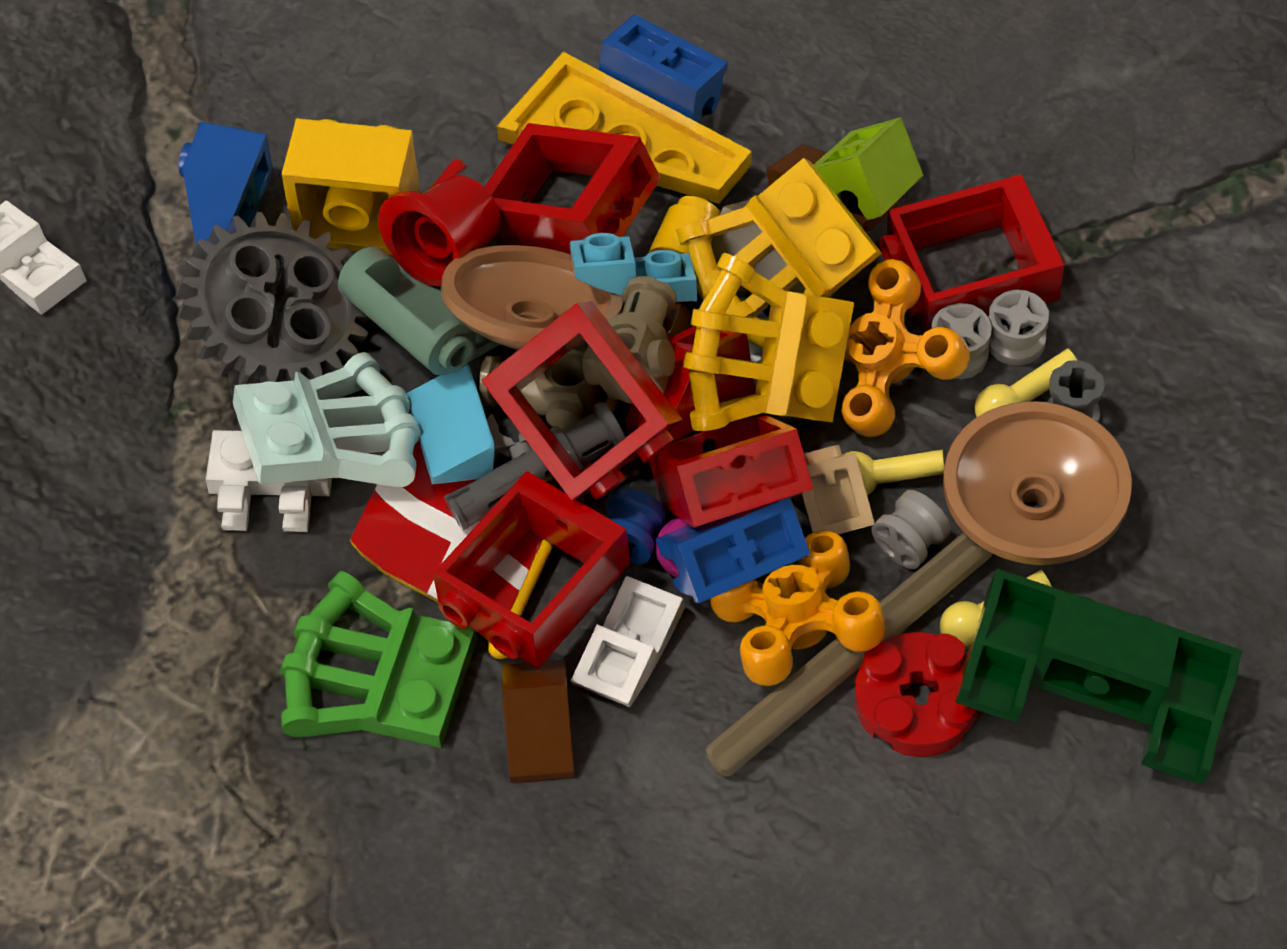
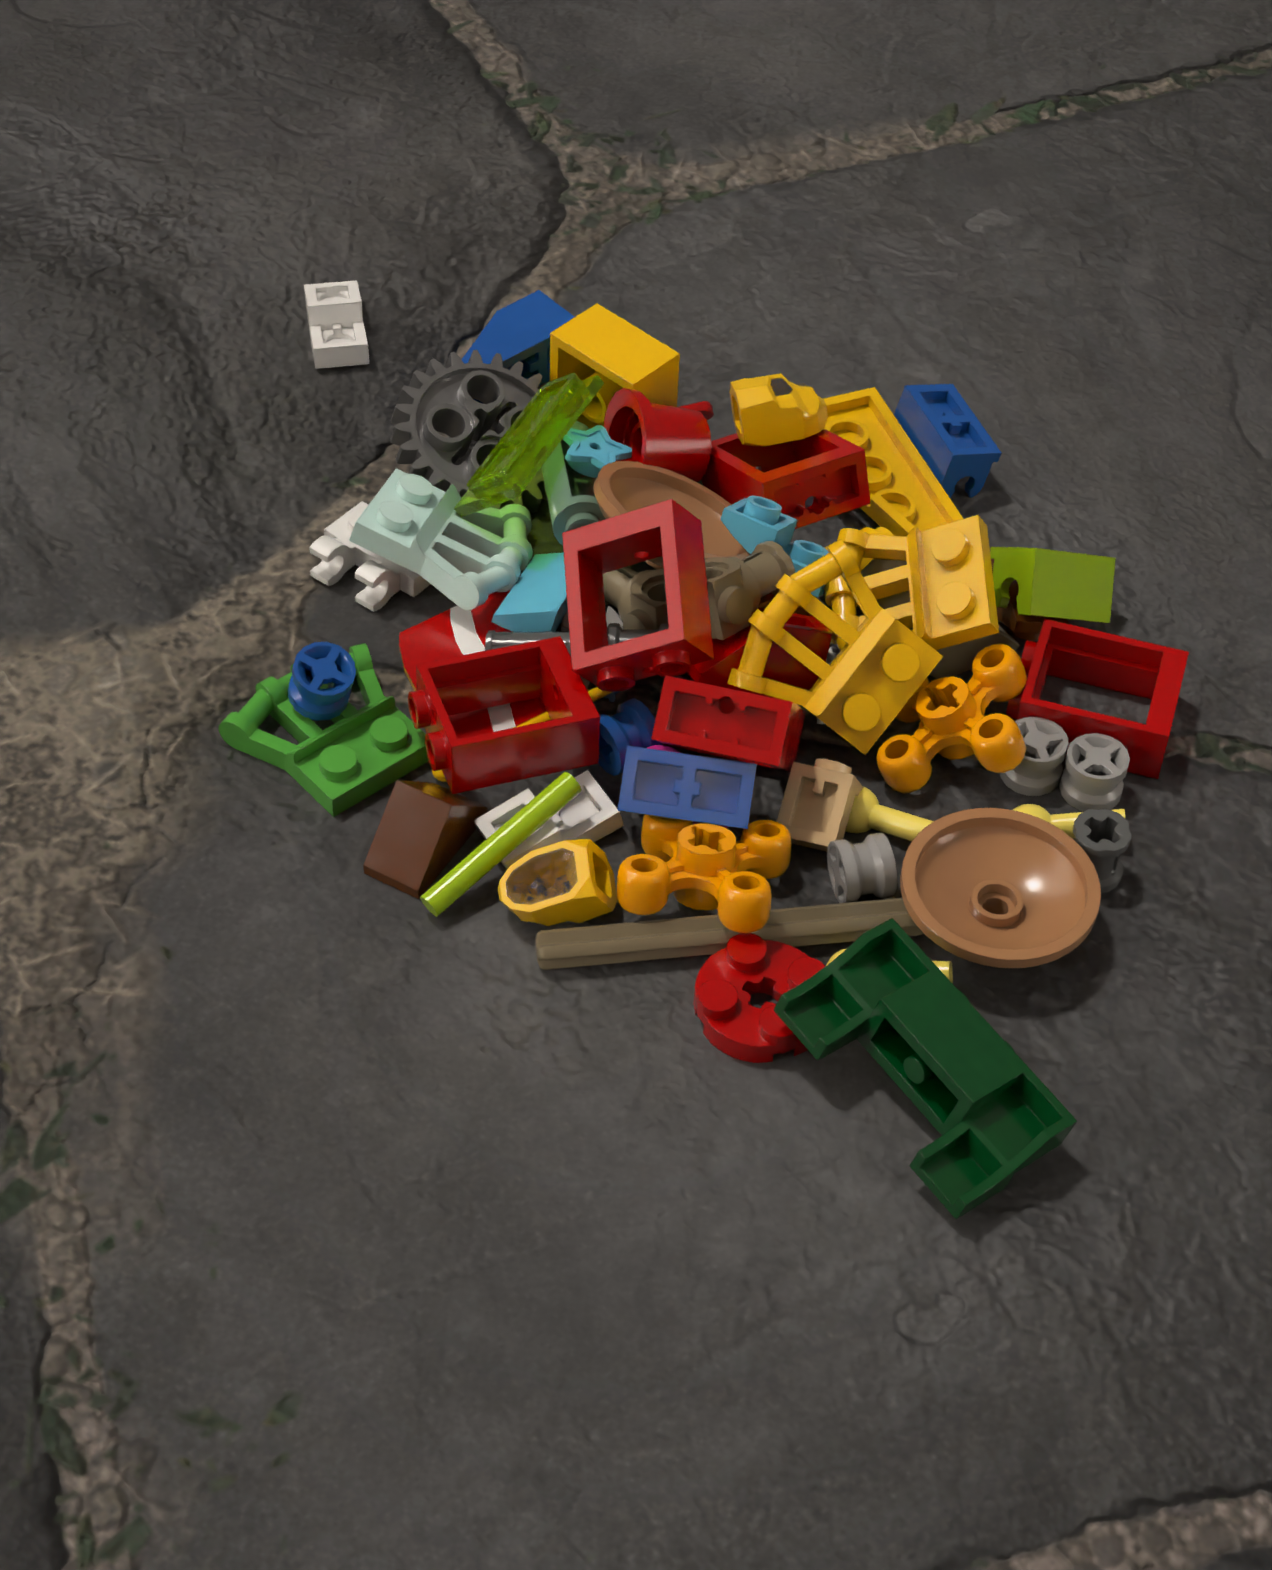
camera: 30 degrees right, 10 degrees down
(347, 296) = (528, 442): none -> clear neon green piece
(357, 620) = (319, 665): none -> blue wheel
(407, 271) = (593, 450): none -> medium azure plate
(528, 139) = (775, 410): none -> yellow rock
(617, 689) = (500, 844): none -> lime bar
(692, 697) = (560, 884): none -> yellow rock

